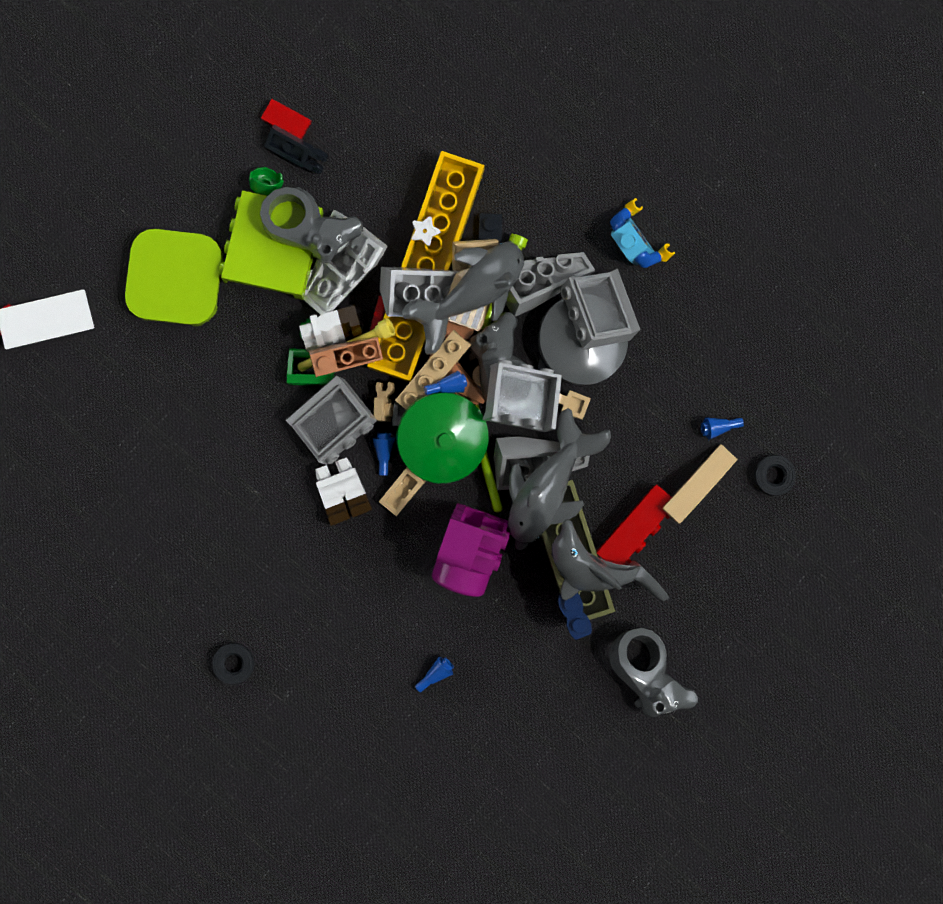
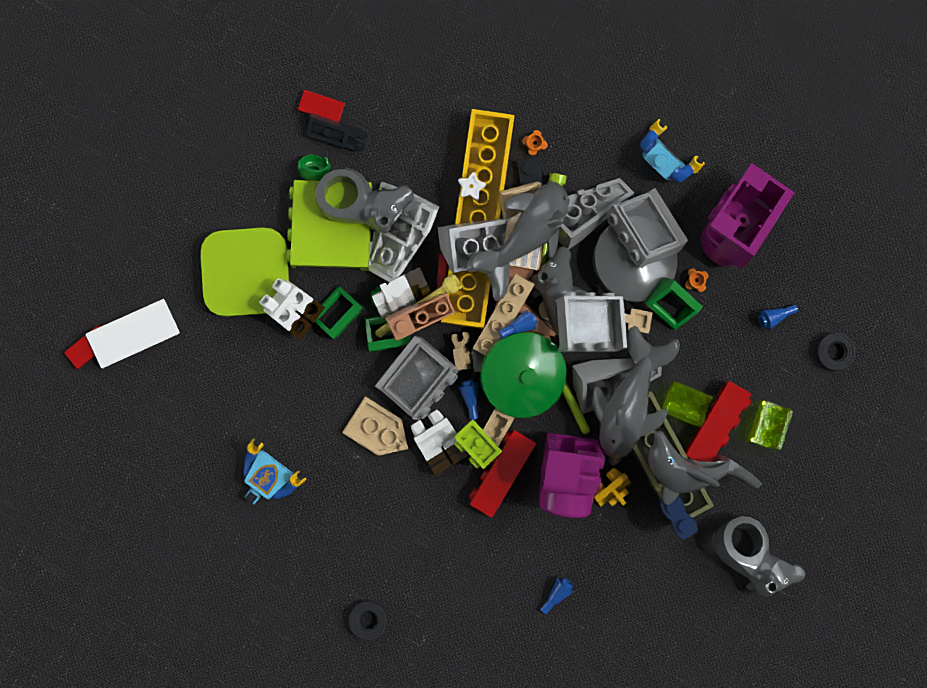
camera: 10 degrees left, 0 degrees up
(156, 493) = (267, 475): none -> torso
(208, 317) = (286, 302): none -> white hips
(266, 348) = (347, 318): none -> green tile
(280, 466) = (376, 429): none -> tan tile
(380, 501) = (477, 444): none -> lime bracket
(401, 537) = (502, 473): none -> red brick
(502, 192) = (536, 136): none -> orange plate
(515, 577) = (619, 482): none -> yellow hips
(608, 500) = (687, 403): none -> clear neon green bracket
(632, 400) = (668, 285): none -> green tile
(642, 367) = (700, 285): none -> orange plate
(691, 539) = (770, 425): none -> clear neon green bracket
(699, 484) = (768, 373): tan slope -> none
(703, 316) = (744, 218): none -> magenta brick

